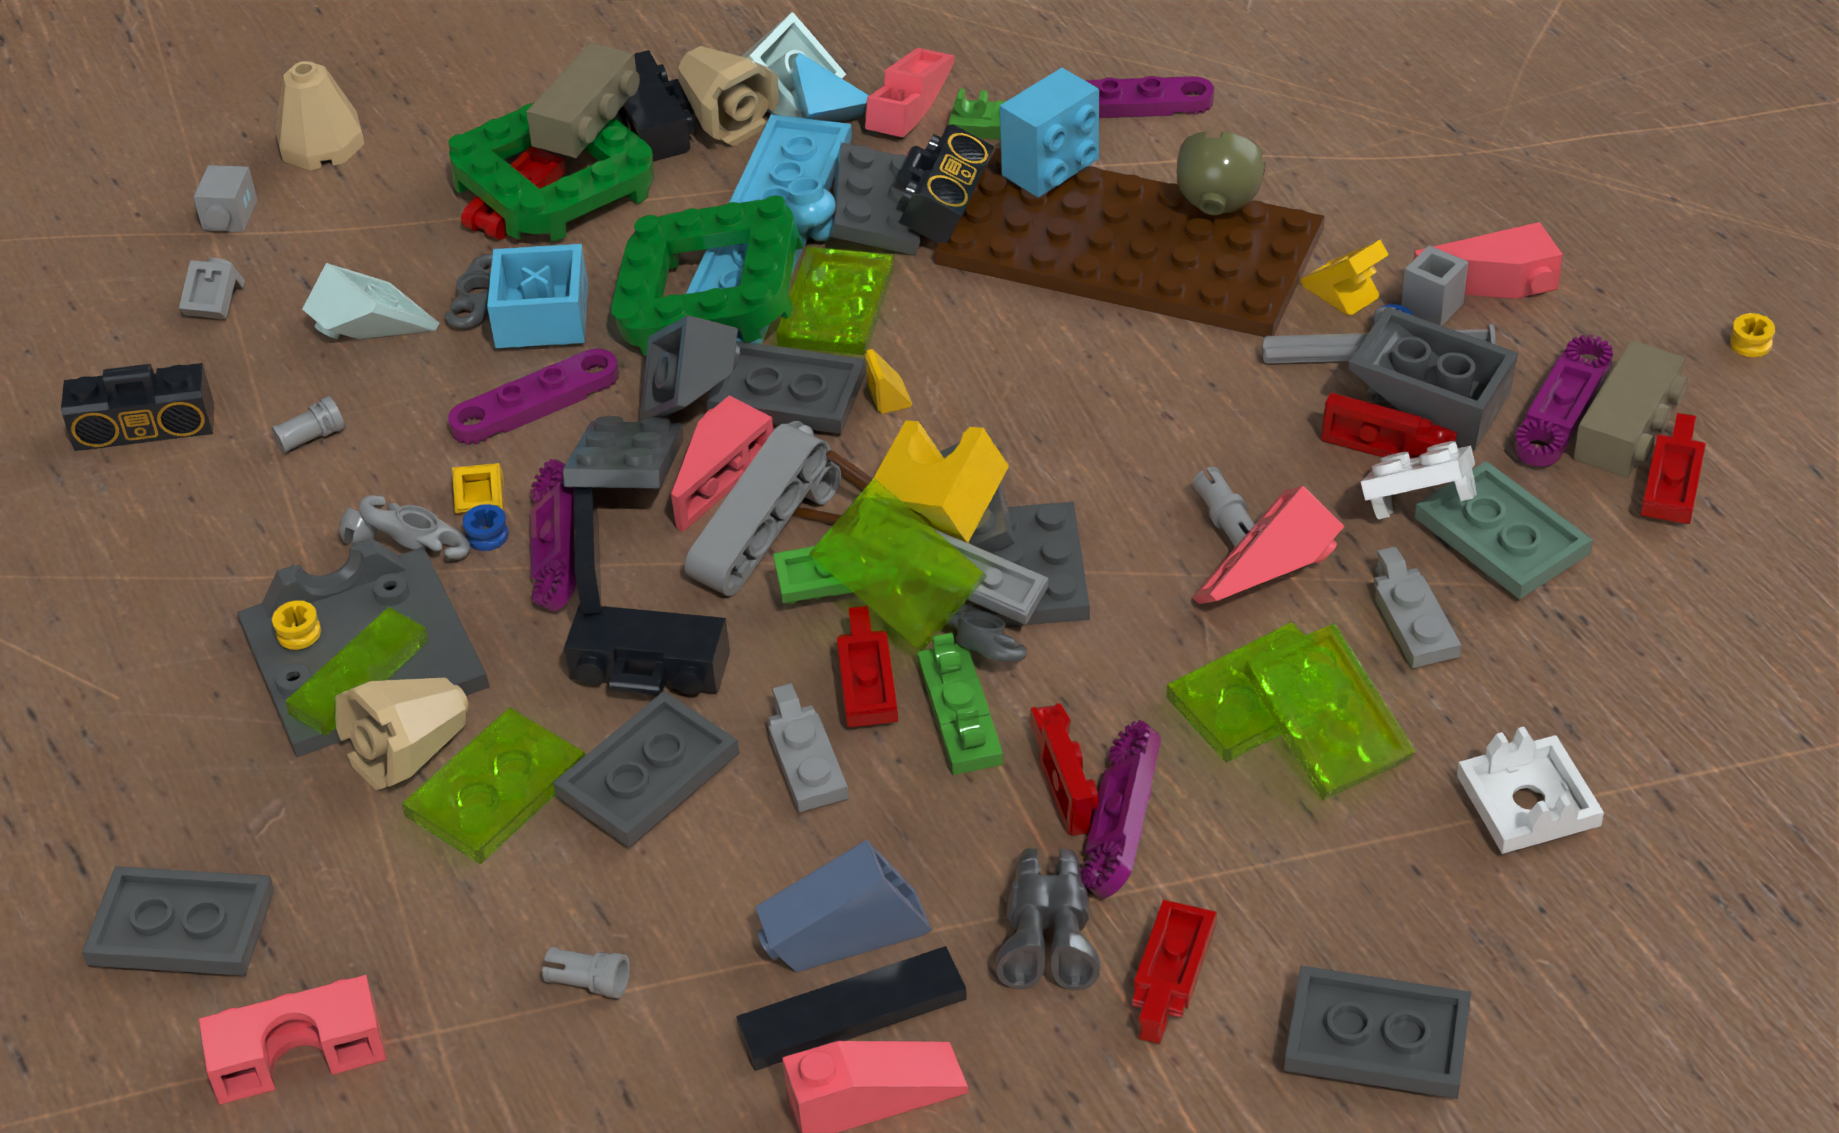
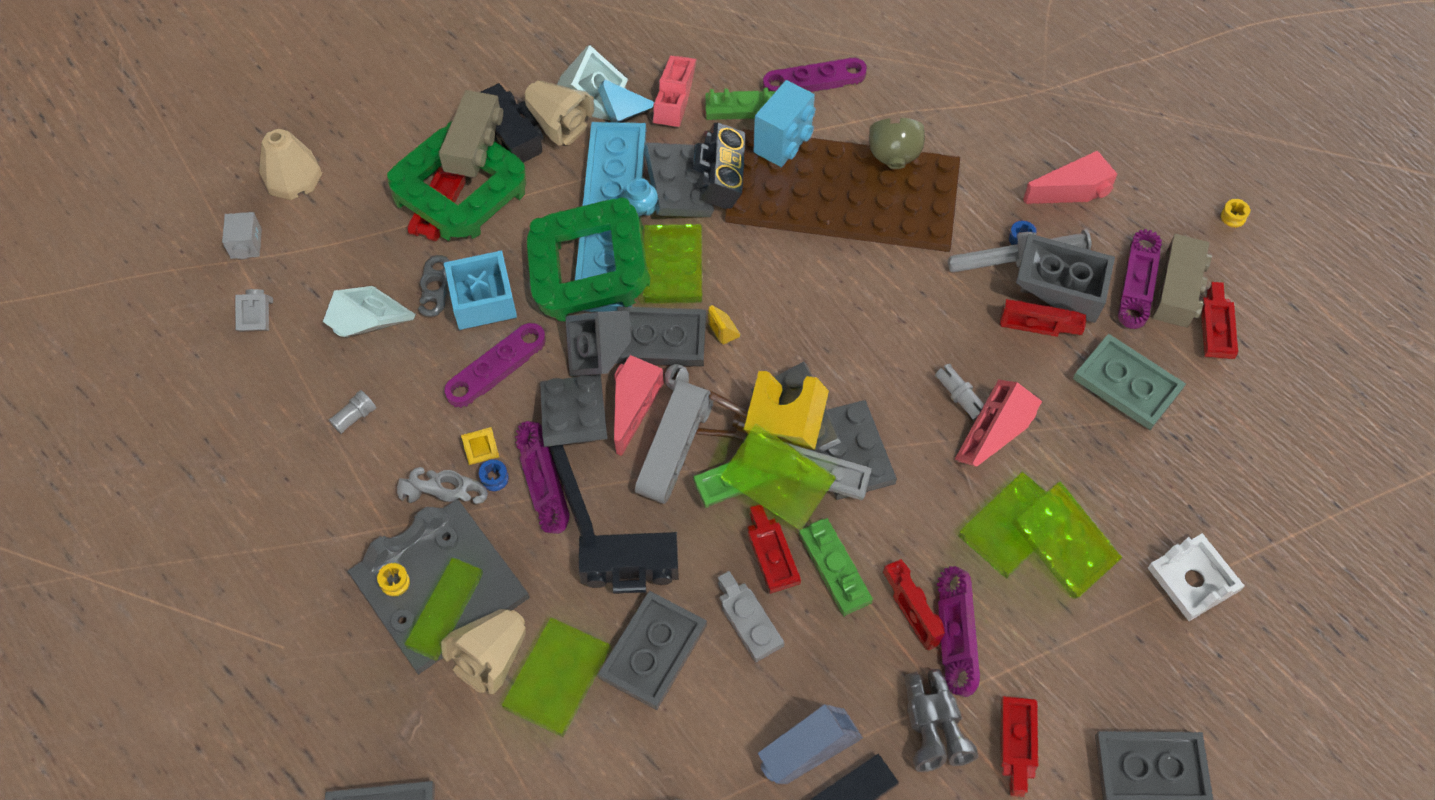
camera: 15 degrees left, 15 degrees up
(137, 406) = (231, 417): black piece -> none
(985, 635) = (844, 518): dark grey piece -> none
(1347, 279) = (987, 202): yellow slope -> none
(1401, 474) = (1092, 354): white piece -> none
(1413, 612) = (1090, 450): light grey hinge -> none
(1434, 285) = (1045, 206): light grey brick -> none

